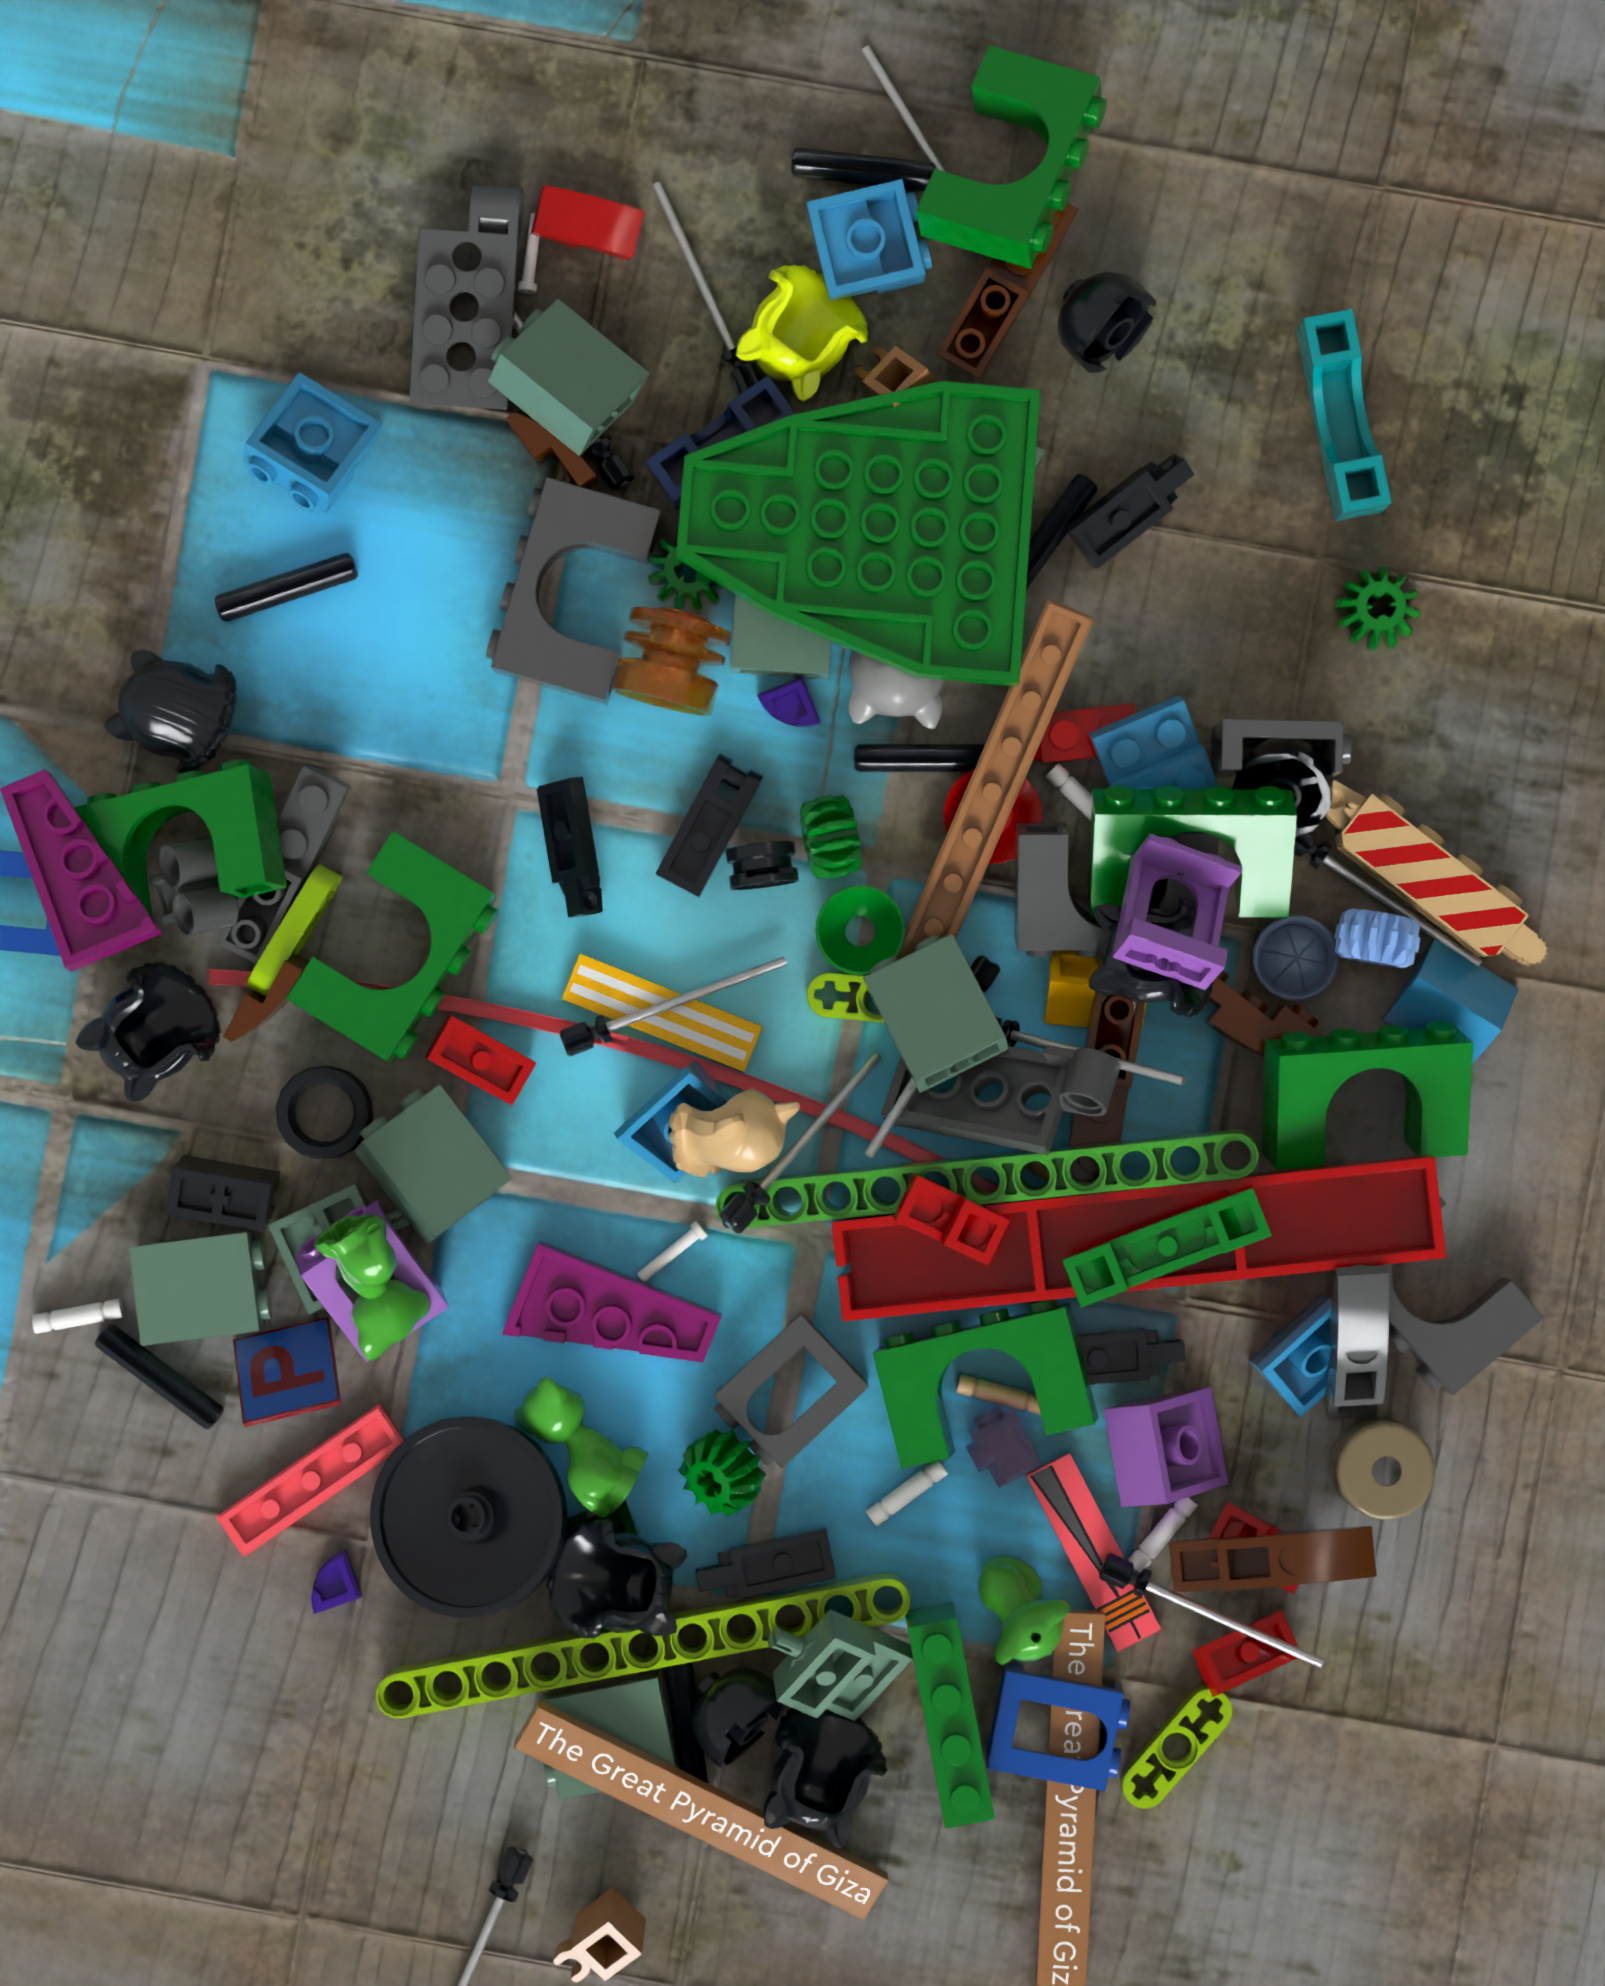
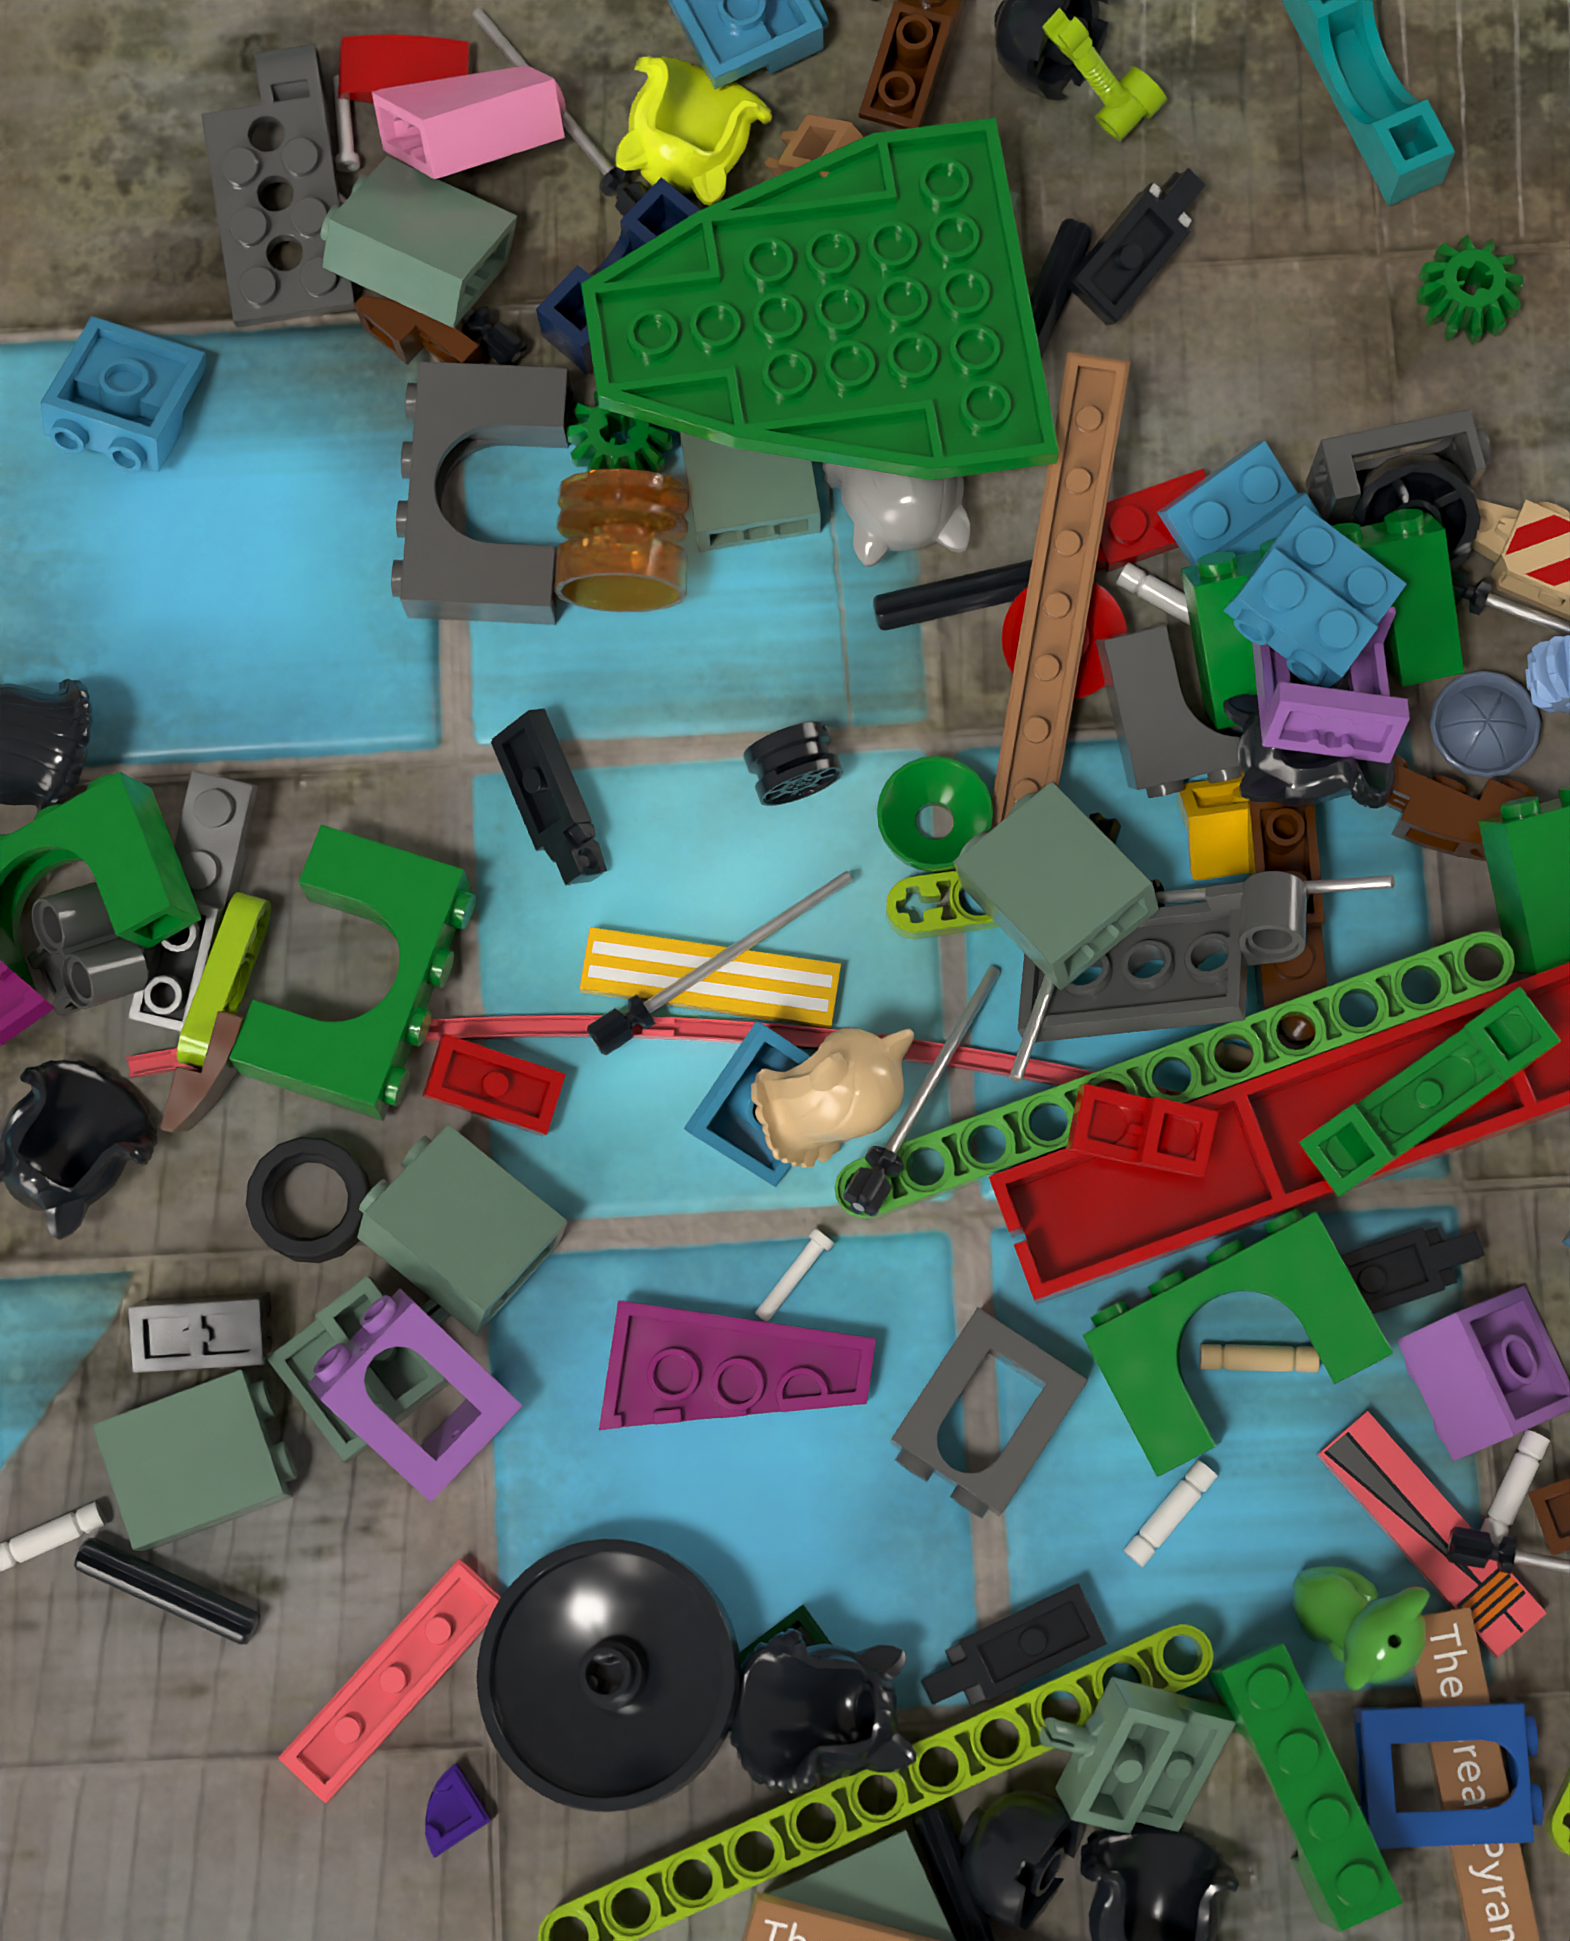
camera: 10 degrees left, 10 degrees down
(286, 587) = (128, 573): black axle -> none
(286, 1372) = (331, 1542): blue piece -> none
(385, 1306) = (400, 1352): bright green animal -> none
(598, 1469) = (761, 1570): bright green animal -> none
(629, 282) = (469, 118): none -> bright pink slope
(708, 827) = (714, 738): black plate -> none
(722, 1472) = (925, 1538): green gear -> none
(790, 704) = (781, 570): dark purple tile -> none
(830, 836) = (870, 707): green gear -> none
(1002, 1446) = (1278, 1420): clear purple brick -> none
(1147, 388) = (1123, 100): none -> lime brick
(1180, 852) = (1314, 599): none -> dark azure plate

